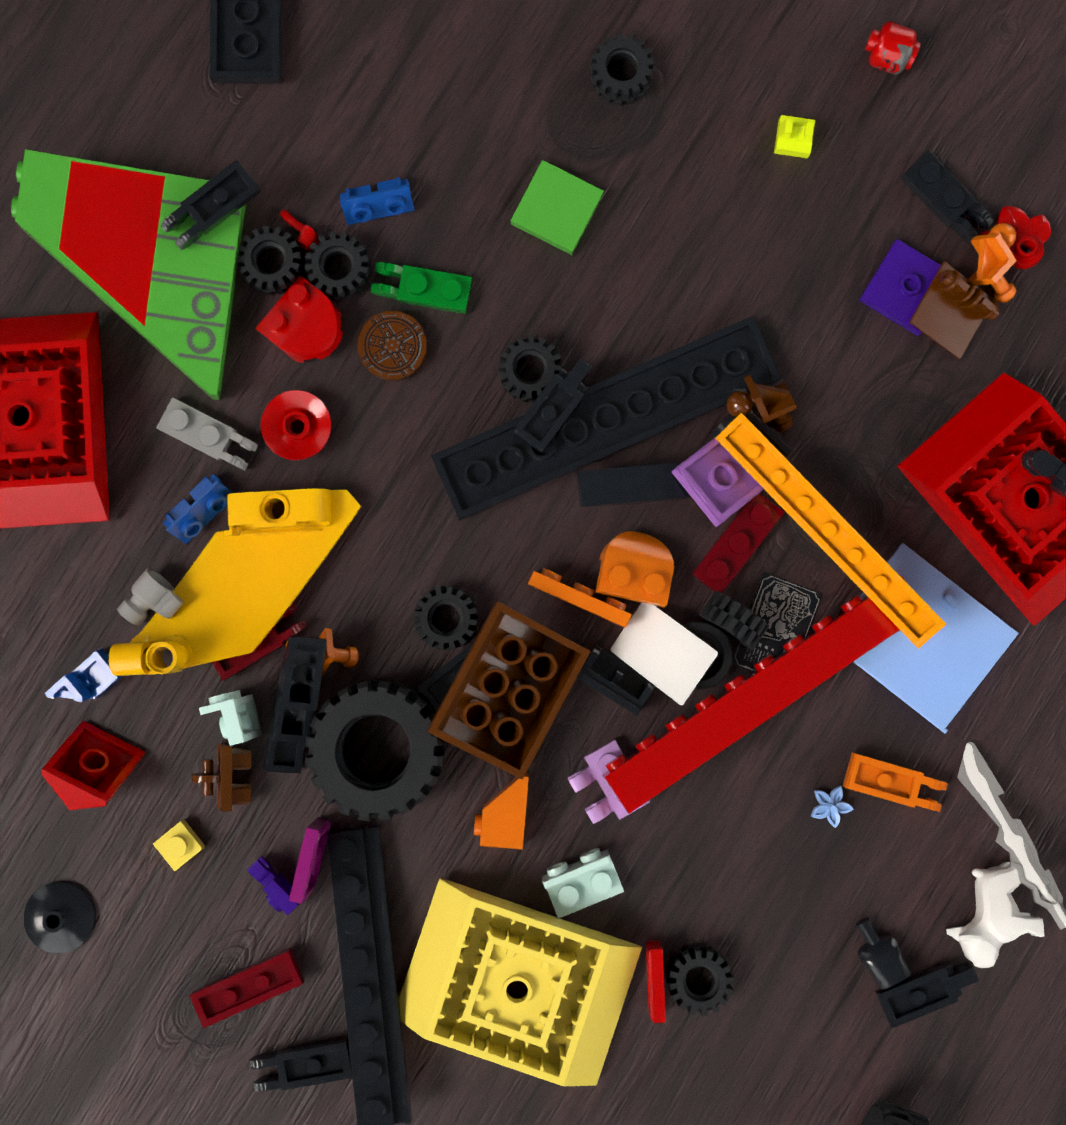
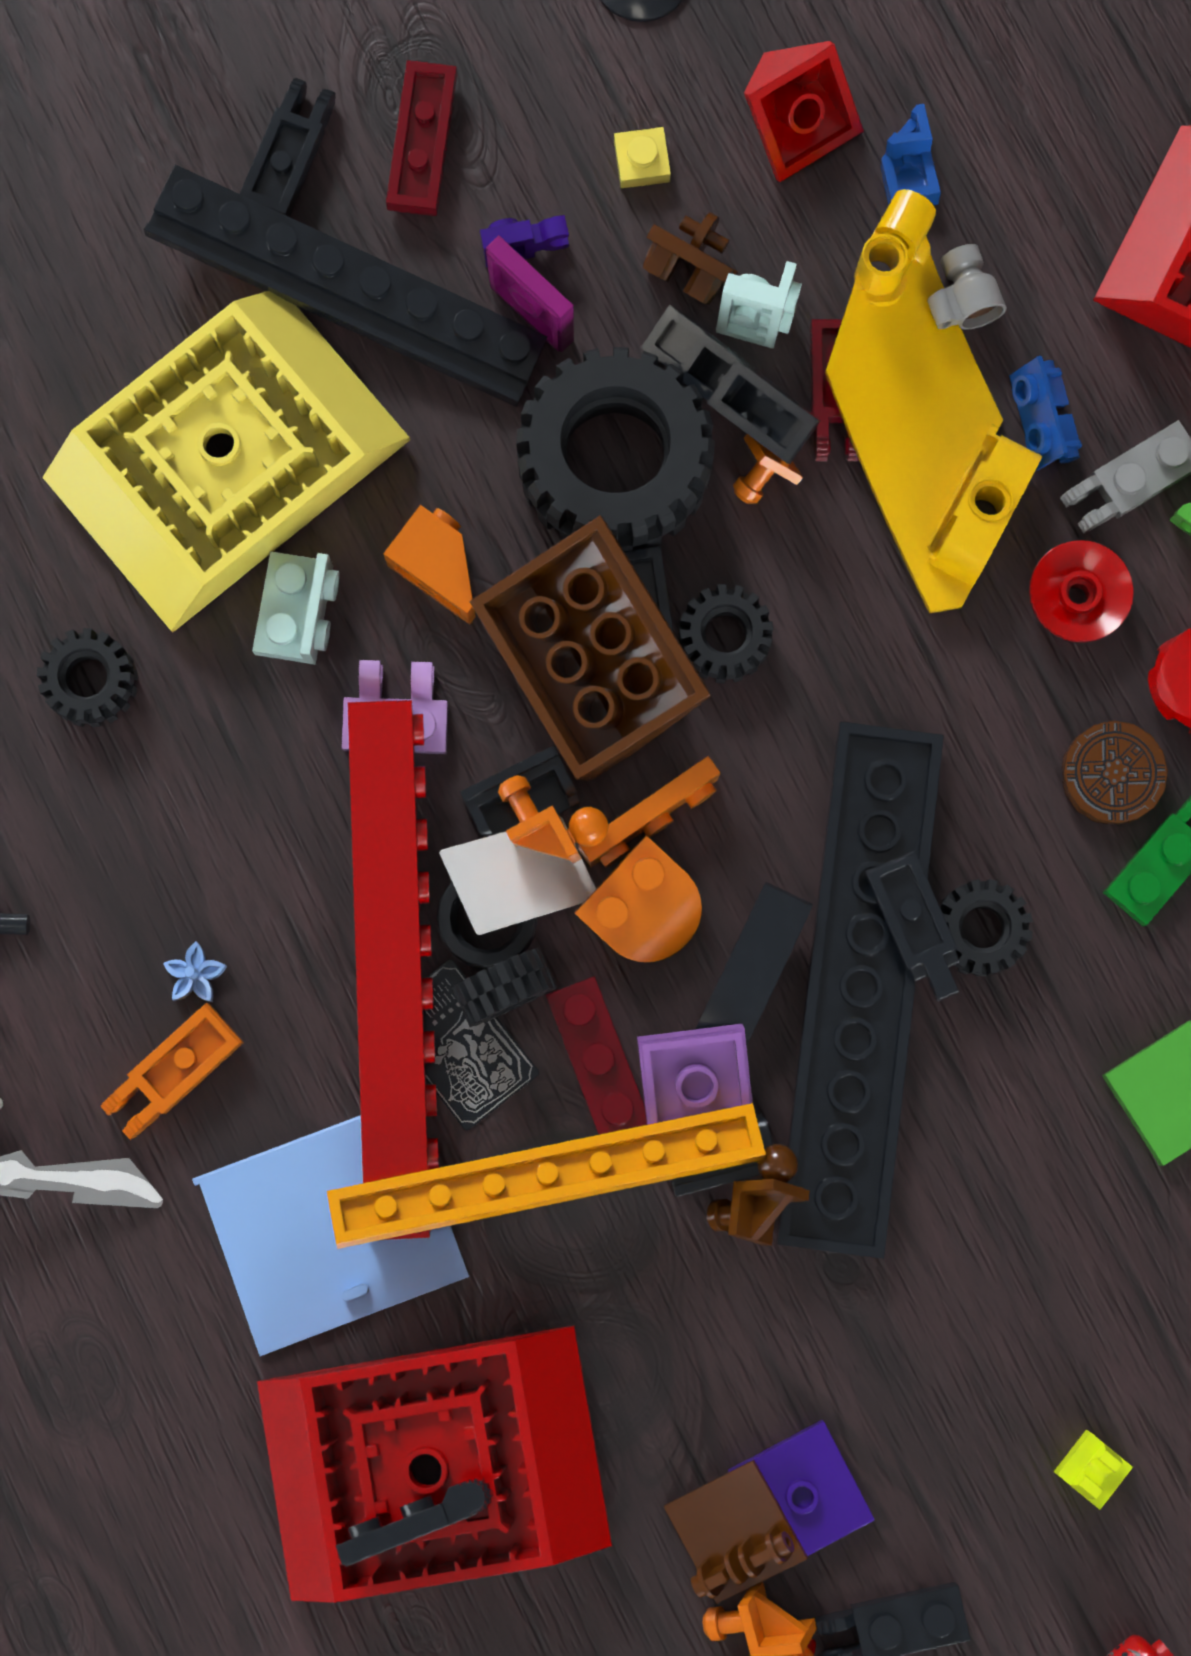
camera: 120 degrees right, 5 degrees down
(630, 648) = (545, 829): none -> orange piece
(655, 981) = (120, 622): red tile -> none

